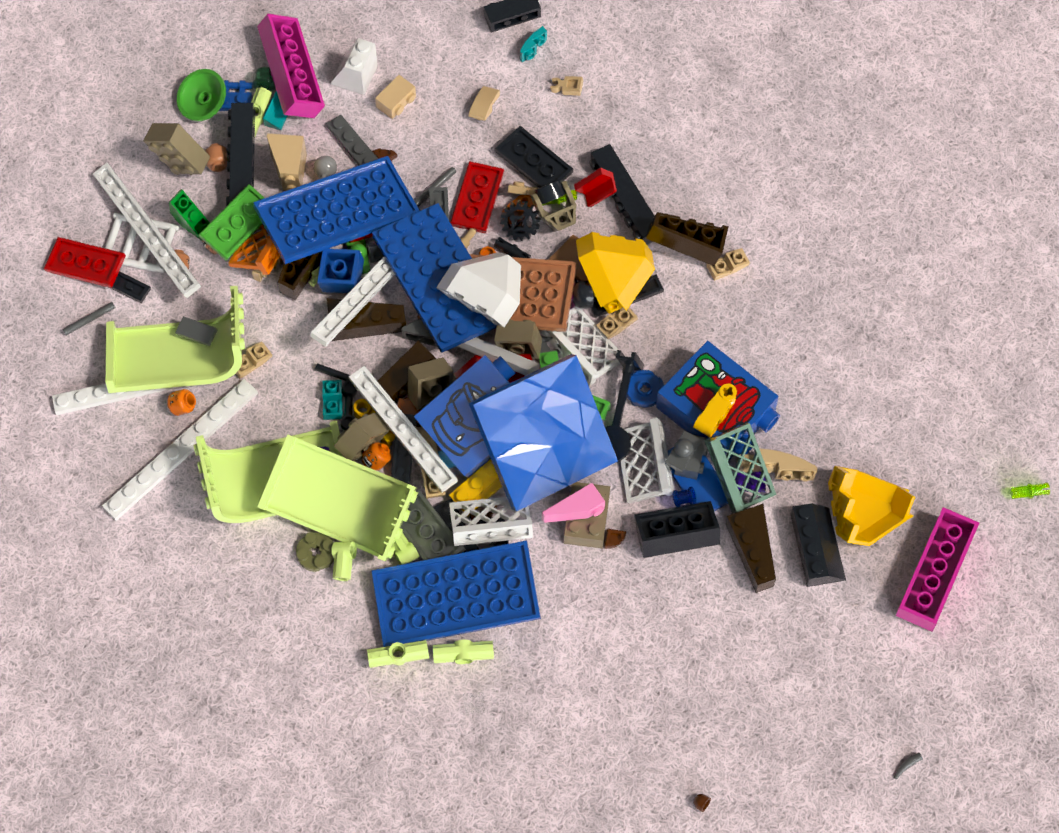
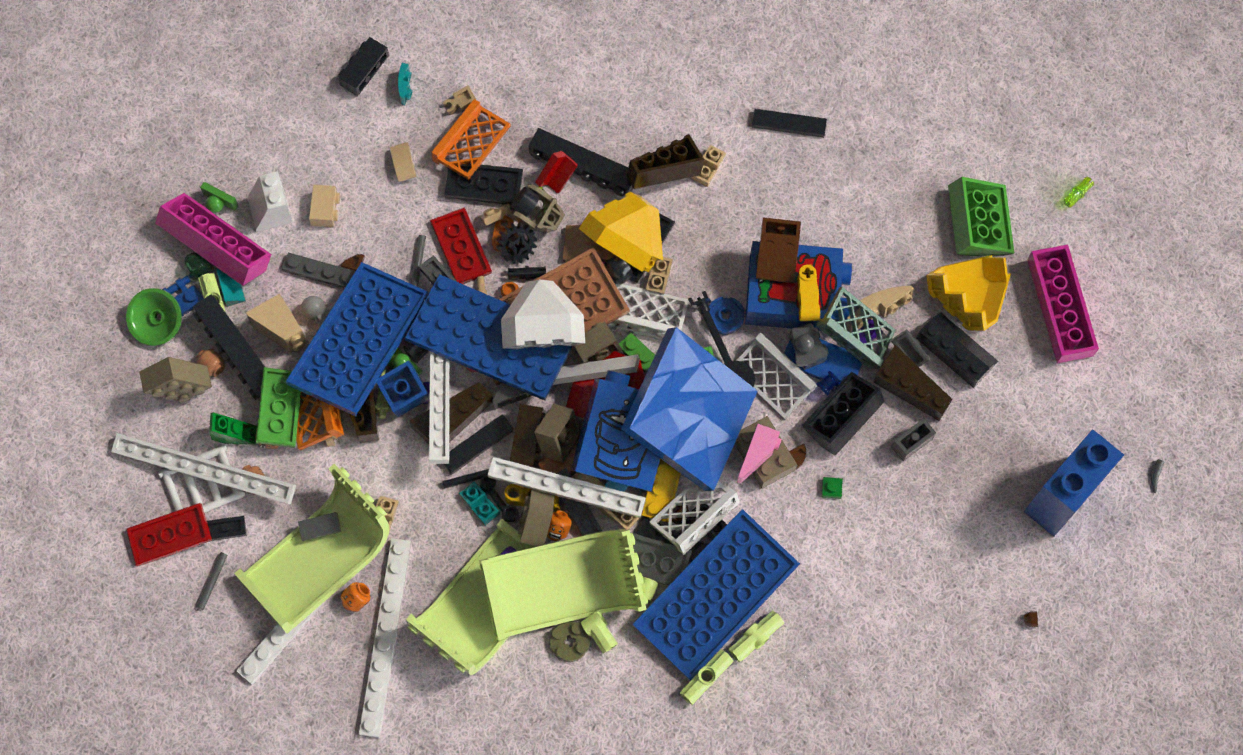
camera: 40 degrees left, 5 degrees up
(320, 40) = (217, 198): none -> bright green tile
(365, 353) = (478, 443): none -> black tile
(544, 108) = (457, 132): none -> orange fence
(621, 582) = (832, 487): none -> green plate
(718, 589) = (913, 439): none -> dark grey brick
(720, 358) = (778, 250): none -> reddish brown slope
(776, 516) = (911, 347): none -> dark grey tile
(817, 710) = (1073, 482): none -> blue brick
(823, 274) = (789, 123): none -> black tile
(925, 455) = (980, 218): none -> bright green slope

